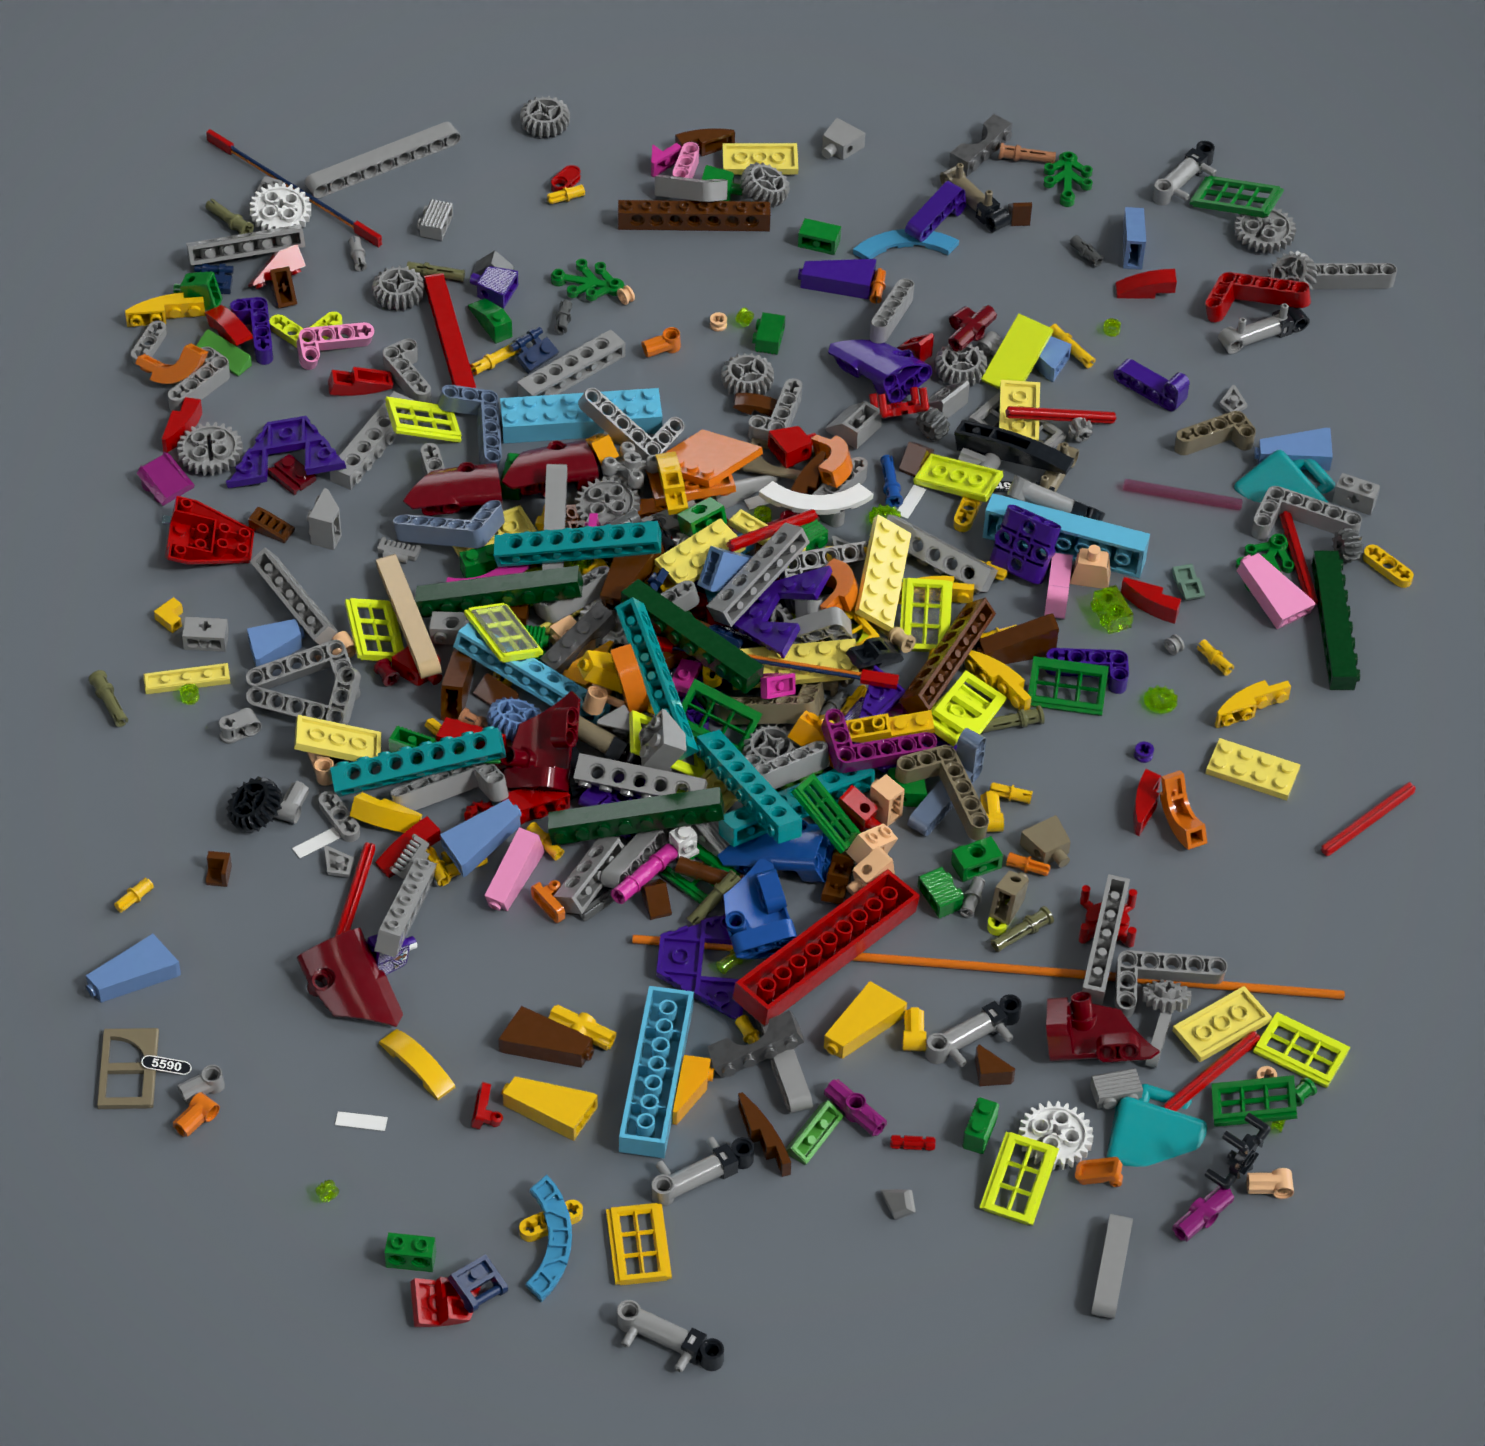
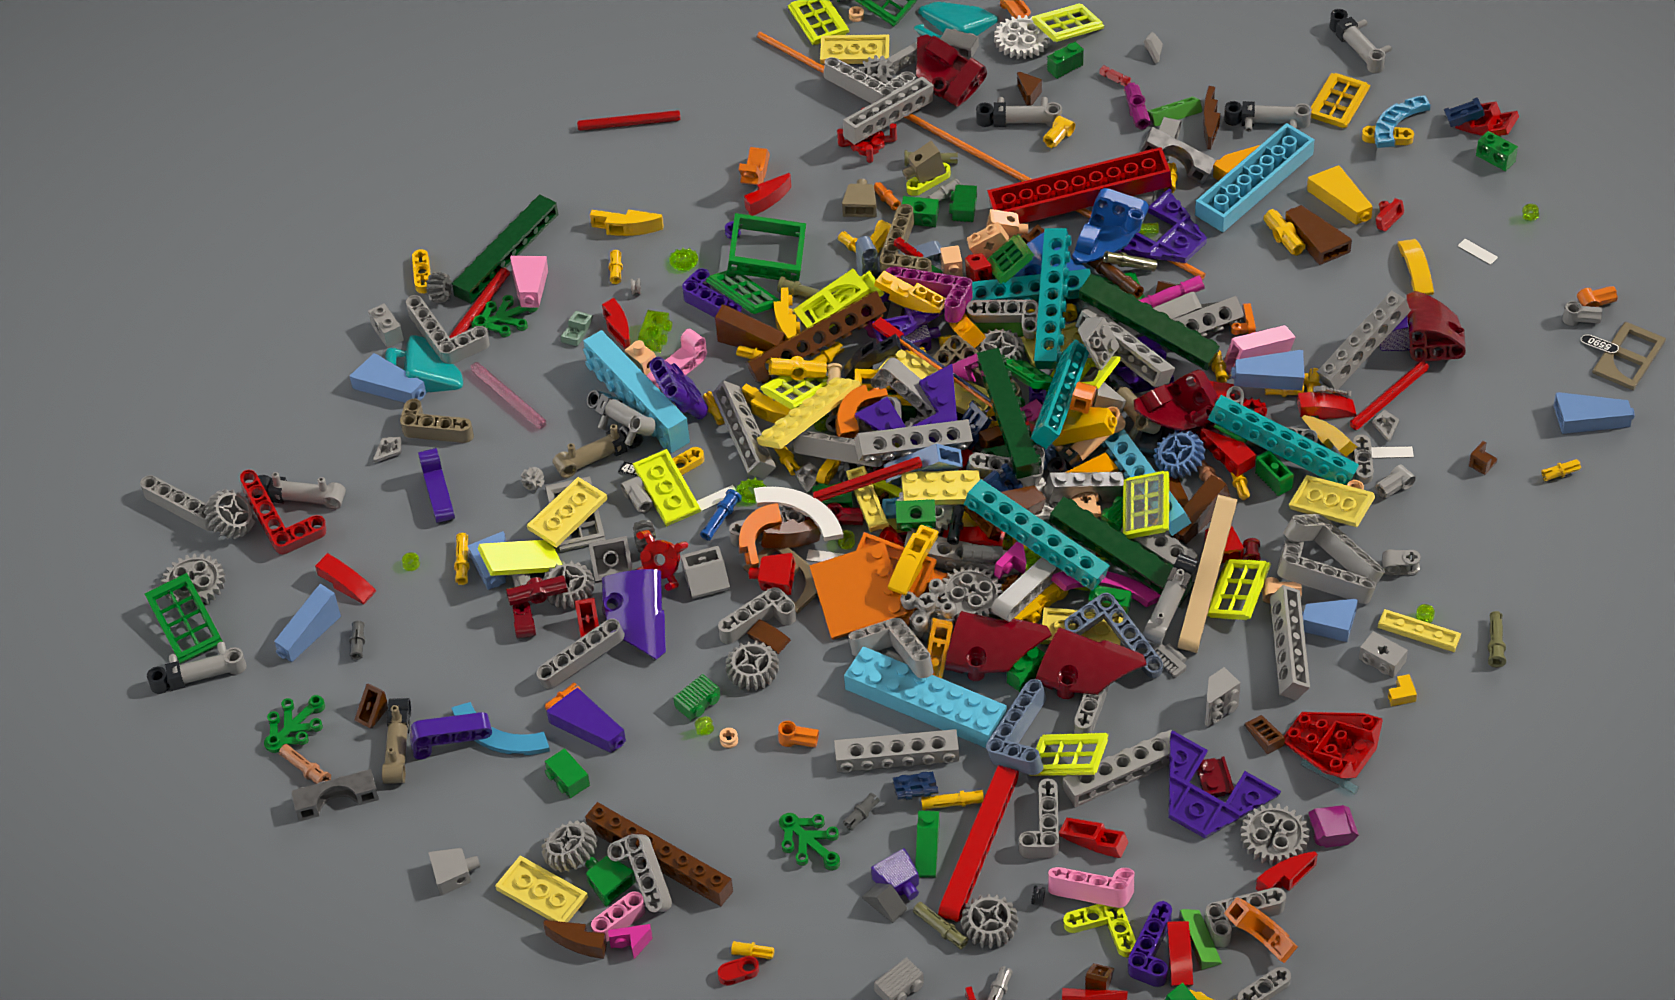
camera: 140 degrees left, 0 degrees up
(254, 804) = (1433, 481): black gear -> none
(373, 320) = (1039, 895): none -> black bush
(424, 572) = (1170, 598): none -> light grey piece
(626, 295) = (788, 803): light nougat bush -> none
(863, 1020) = (1088, 149): yellow slope -> none
(914, 458) = (679, 525): reddish brown slope -> none
(935, 775) = (906, 248): none -> red axle
(938, 620) = (788, 367): none -> yellow piece
(1010, 447) = (609, 478): black slope -> none
(1059, 414) = (539, 489): red axle -> none
(1073, 709) = (765, 268): none -> green window
(1212, 1071) = (894, 28): red axle -> none
(1253, 769) = (670, 186): light yellow plate -> none

